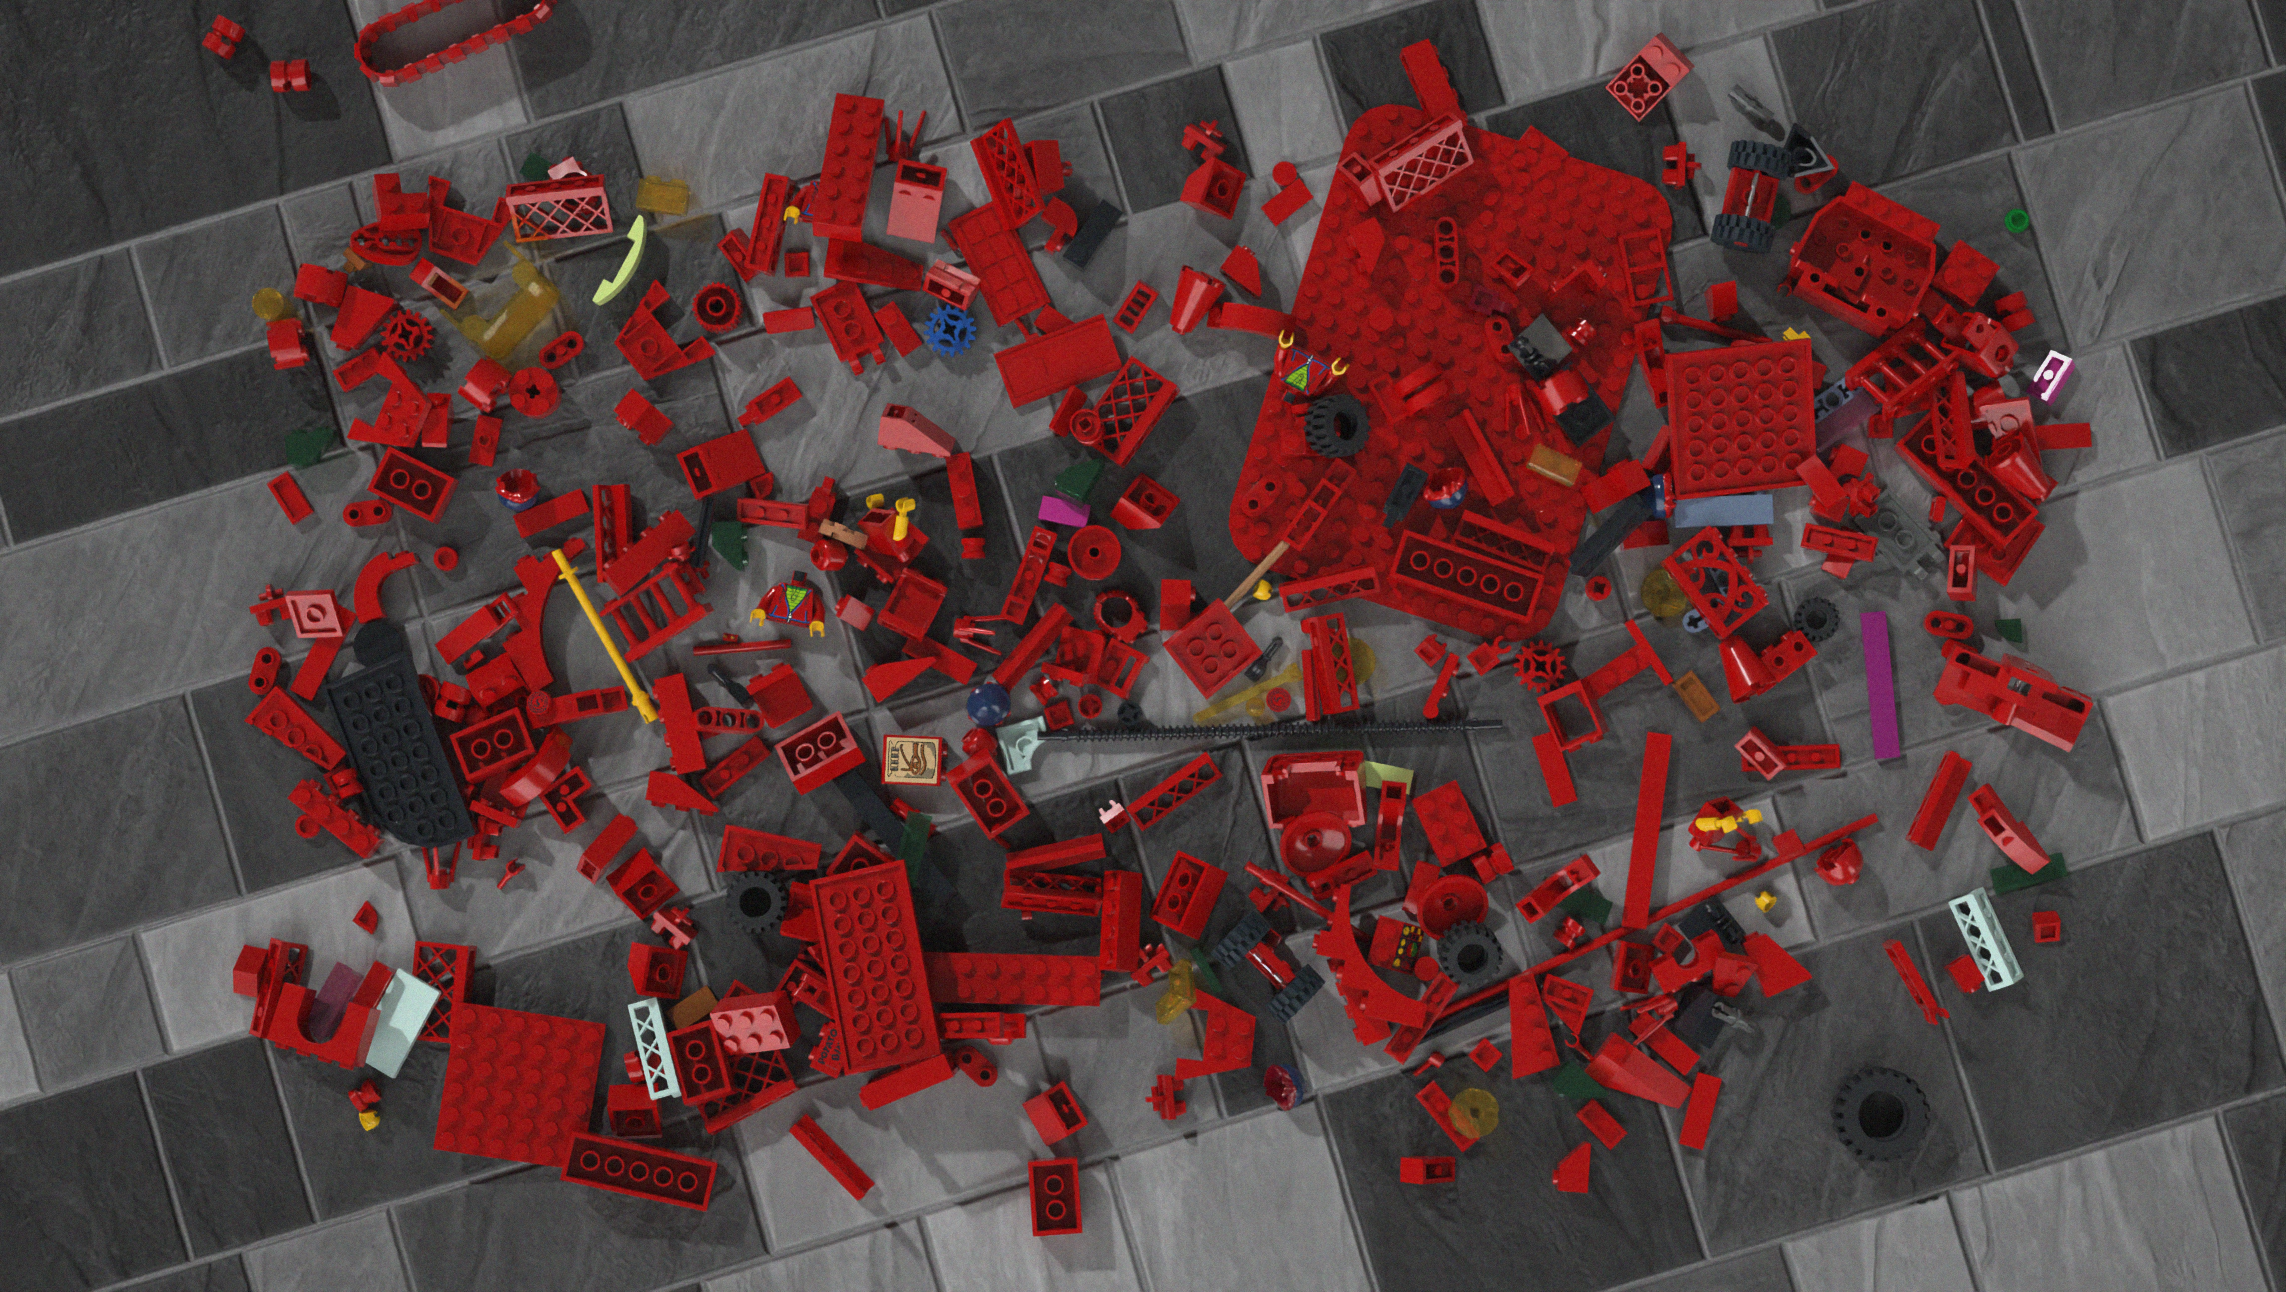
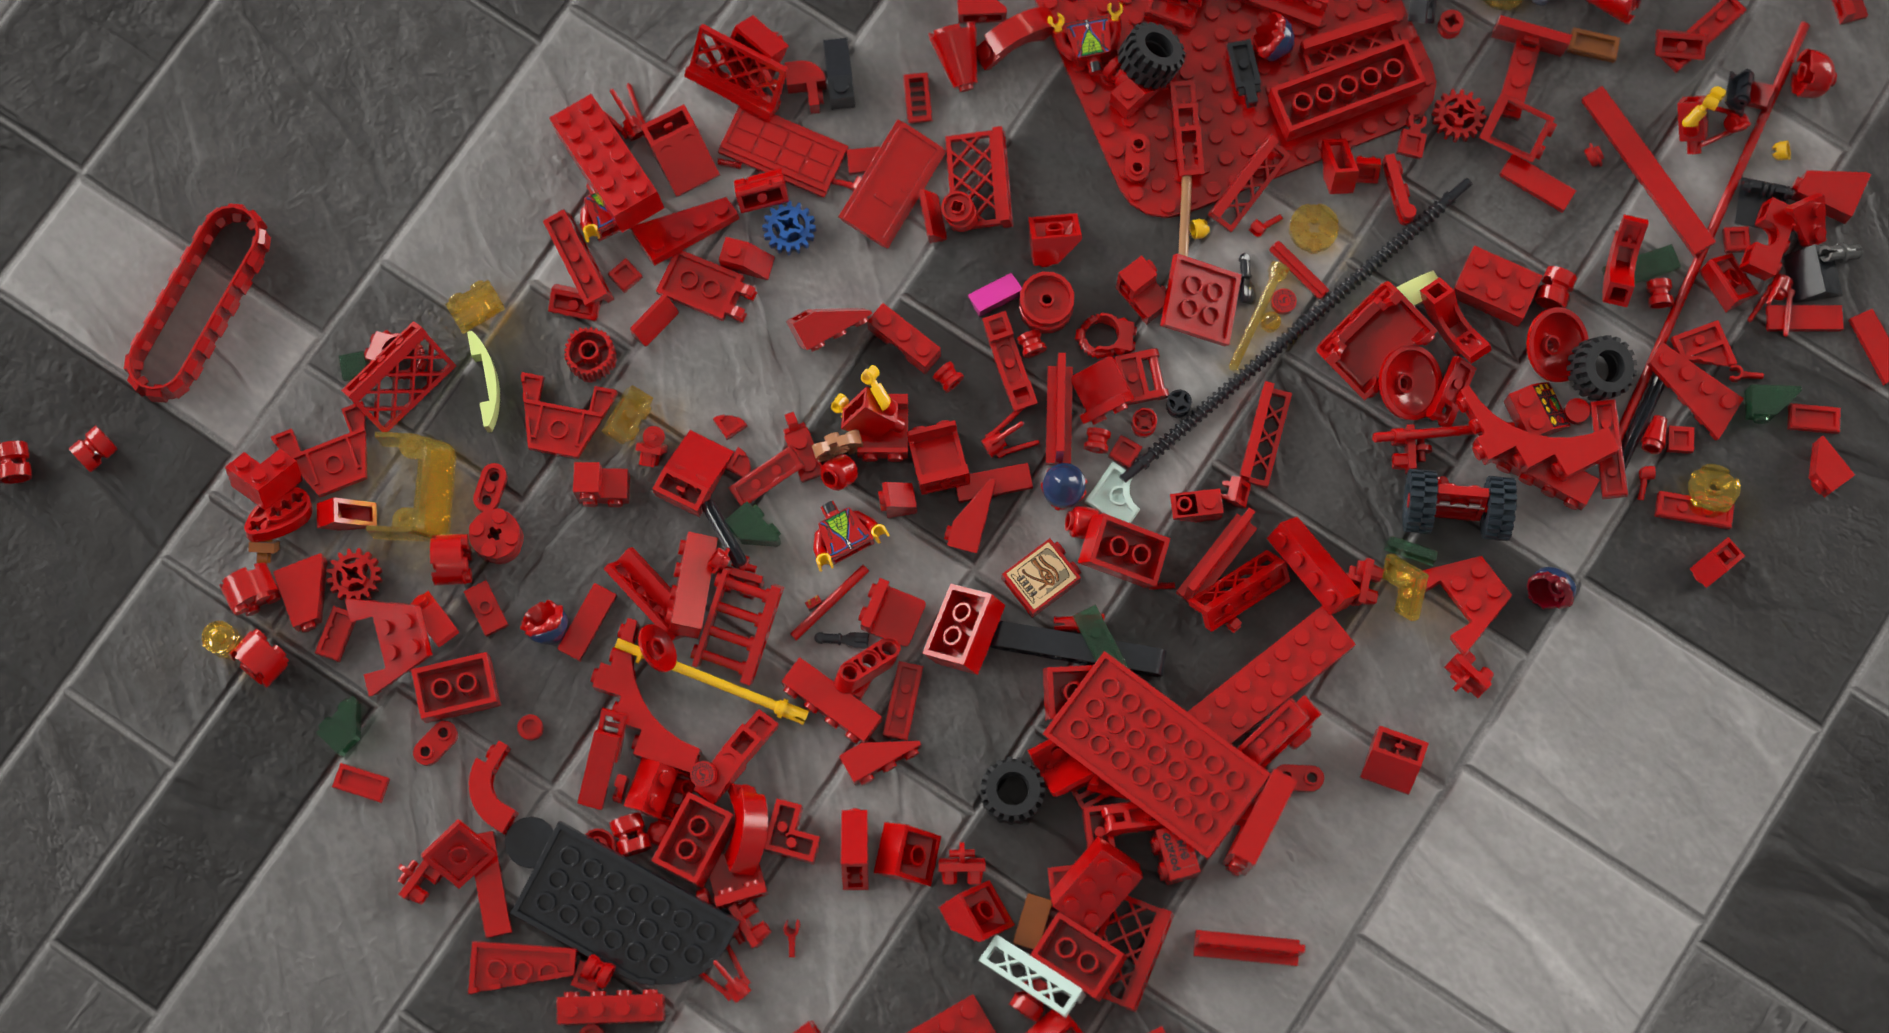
camera: 40 degrees left, 10 degrees down
(268, 672) = (454, 938): red plate -> none
(579, 581) = (657, 648): none -> red dish
(703, 420) = (651, 446): none -> red hips
(707, 380) = (627, 414): none -> clear yellow brick
(765, 851) = (976, 751): red wing -> none
(770, 402) = (692, 395): red hinge -> none
(779, 448) = (729, 425): none -> red tile
(1055, 1196) = (1451, 825): red brick -> none
(1073, 802) = (1197, 505): none -> red slope
(1078, 481) = (986, 260): clear green slope -> none
(1188, 895) = (1346, 504): red slope -> none
(1325, 665) = (1299, 240): red fence -> none
(1410, 630) = (1339, 166): none -> red slope
(1422, 877) = (1514, 348): red slope -> none
(1467, 1036) = (1655, 435): none -> red cone
(1615, 784) = (1594, 155): none -> red plate
(1631, 1071) = (1804, 357): red wedge -> none
(1771, 827) = (1739, 91): none -> black hinge

